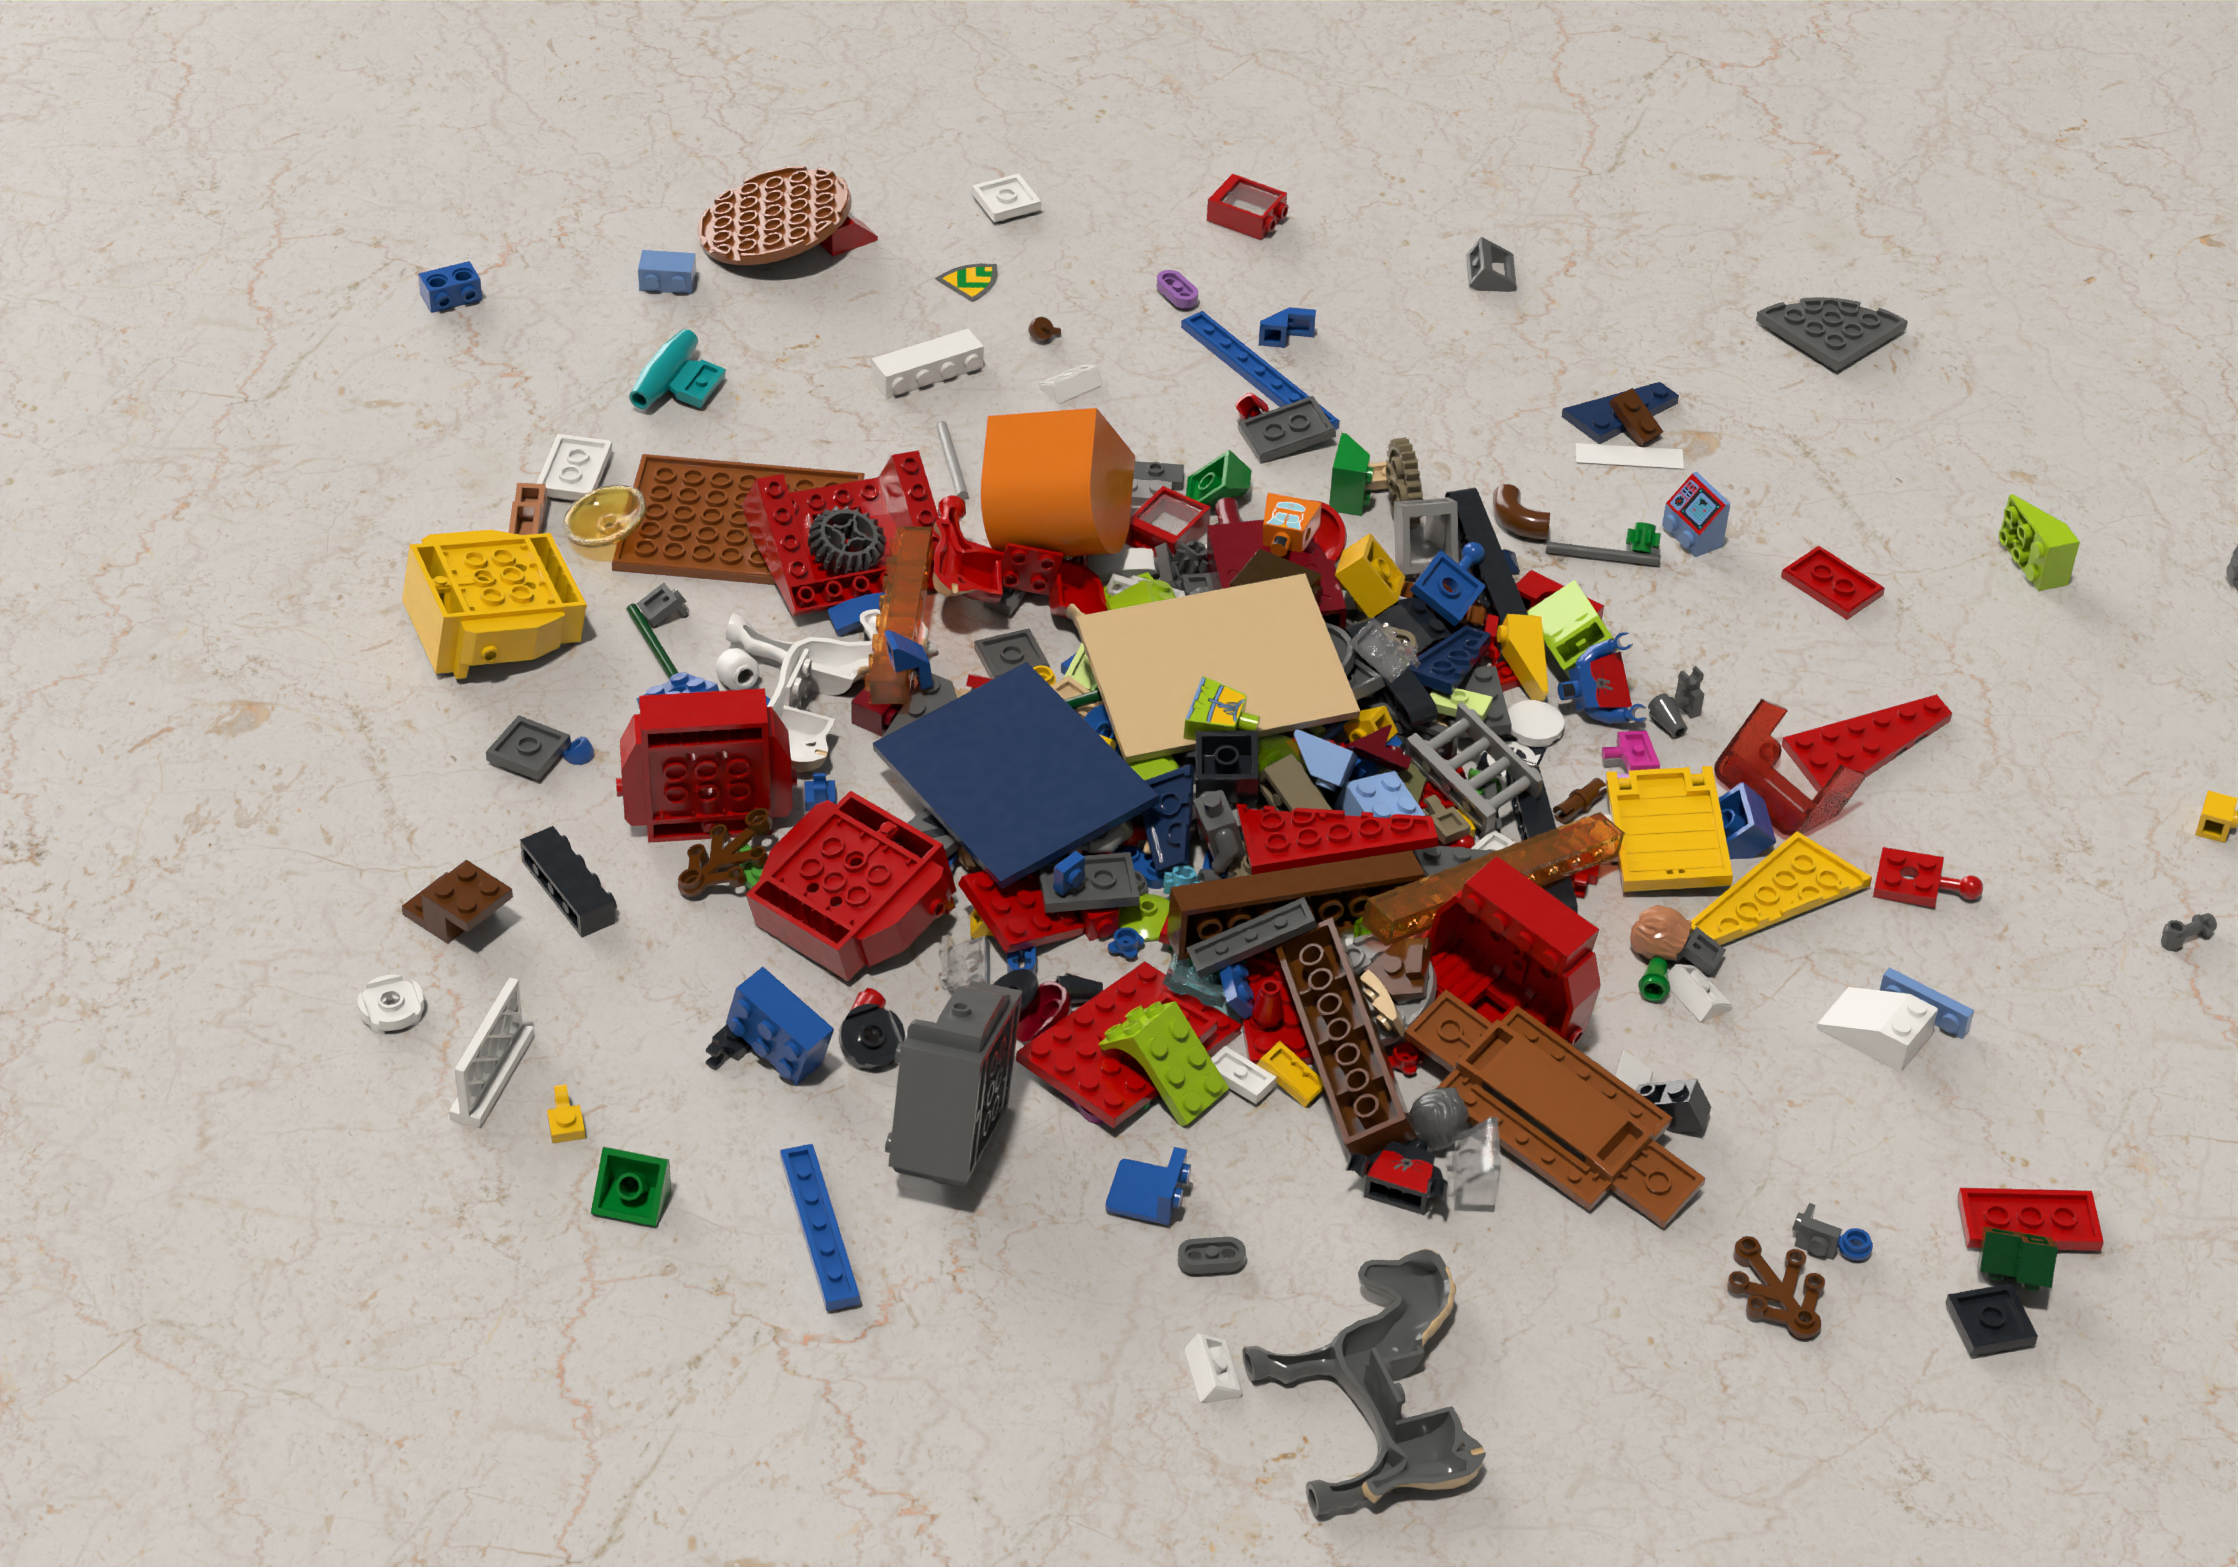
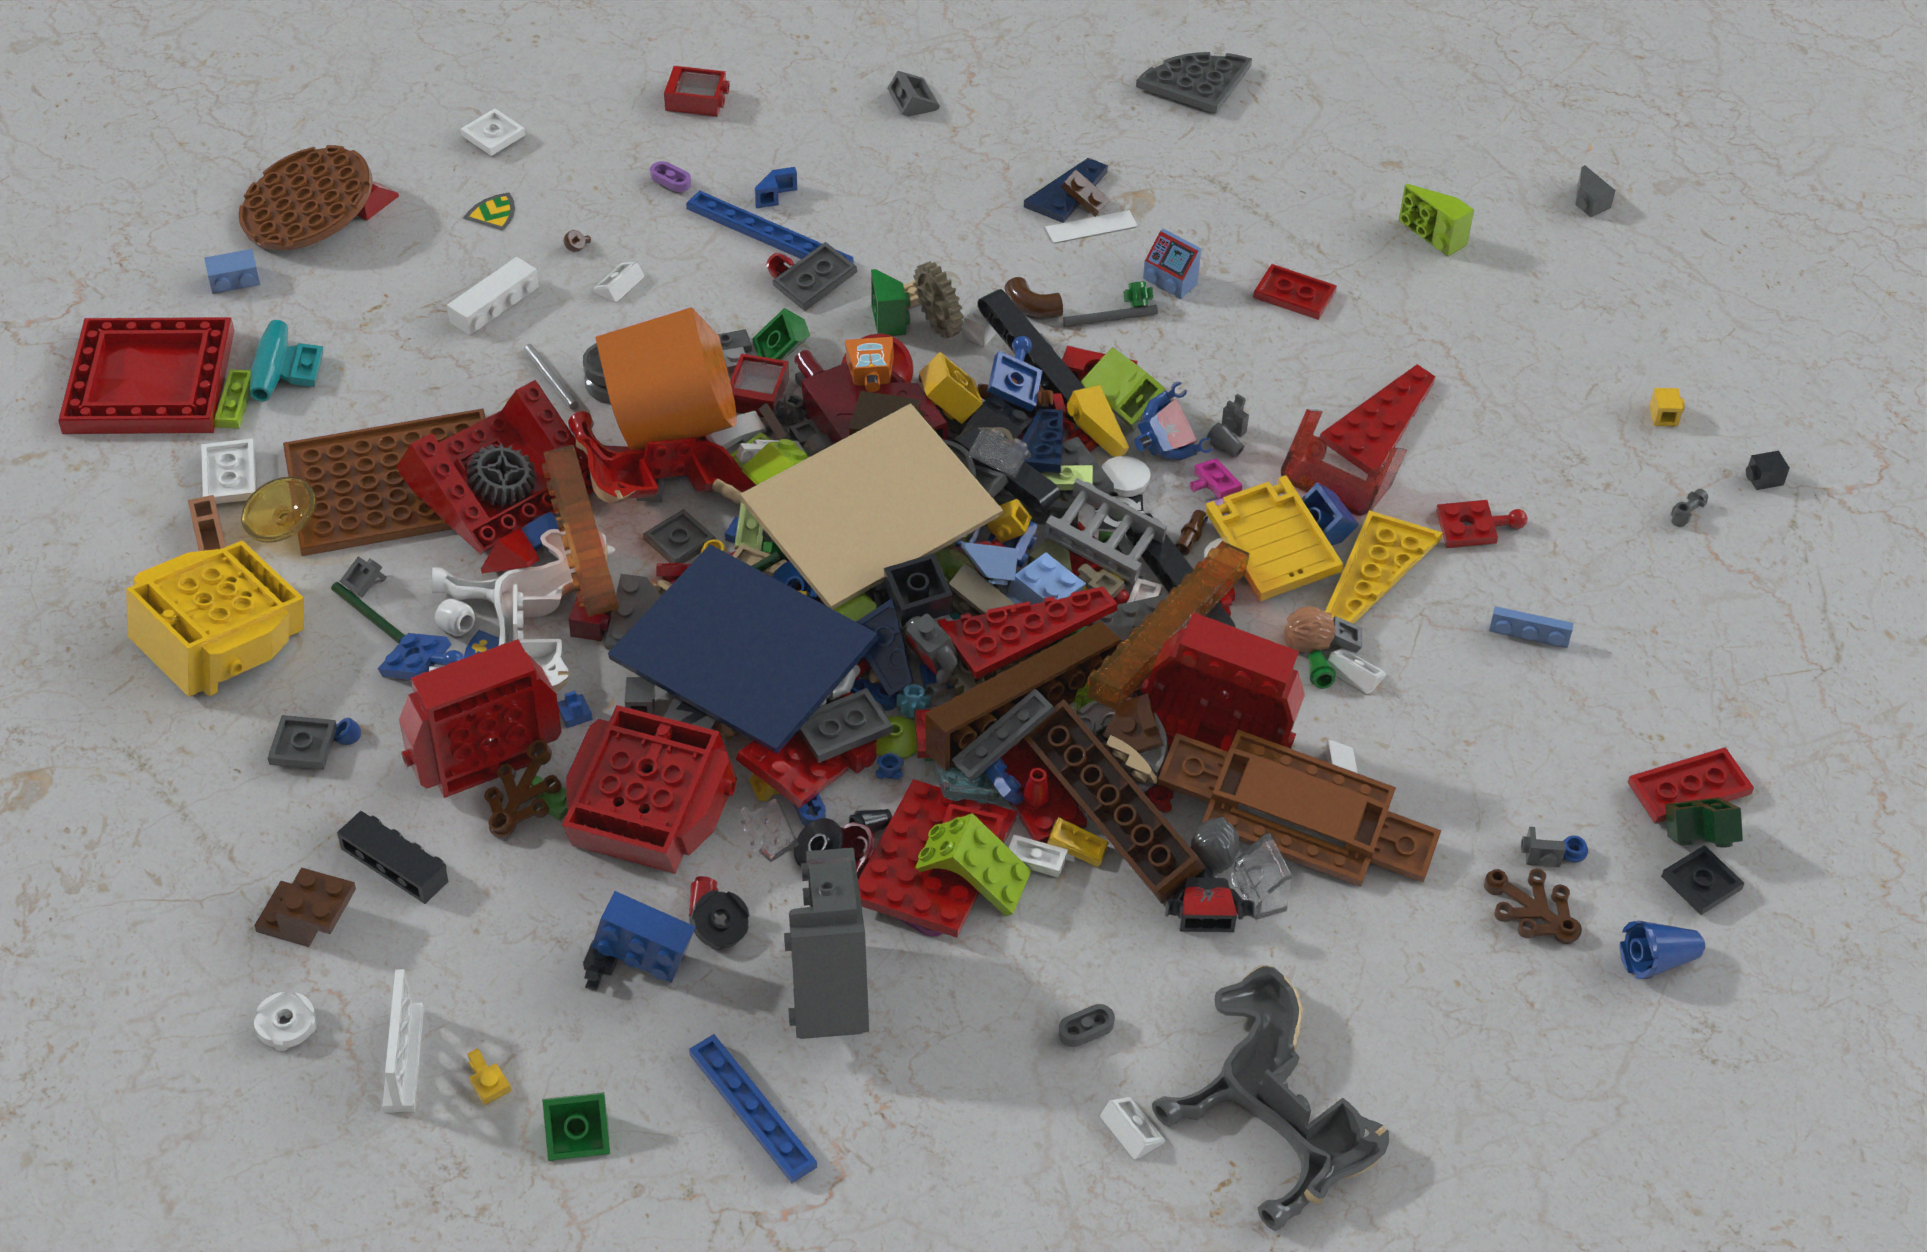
camera: 20 degrees left, 5 degrees up
(450, 286) = (44, 334): blue brick -> none
(535, 353) = (147, 375): none -> red tile
(610, 400) = (233, 399): none -> lime tile
(821, 620) = (510, 553): none -> red slope
(892, 796) = (640, 694): none -> dark grey brick
(907, 655) = (607, 568): blue slope -> none
(1069, 873) = (830, 723): blue plate -> none
(1149, 1189) = (1010, 983): blue bracket -> none
(1218, 709) = (893, 544): torso -> none
(1373, 749) = (1024, 537): dark red slope -> none
(1415, 508) = (952, 328): light grey window -> none
(1681, 1100) = (1391, 769): black slope -> none
(1881, 1024) = (1504, 654): white slope -> none
(1899, 1370) = (1658, 948): none -> blue cone

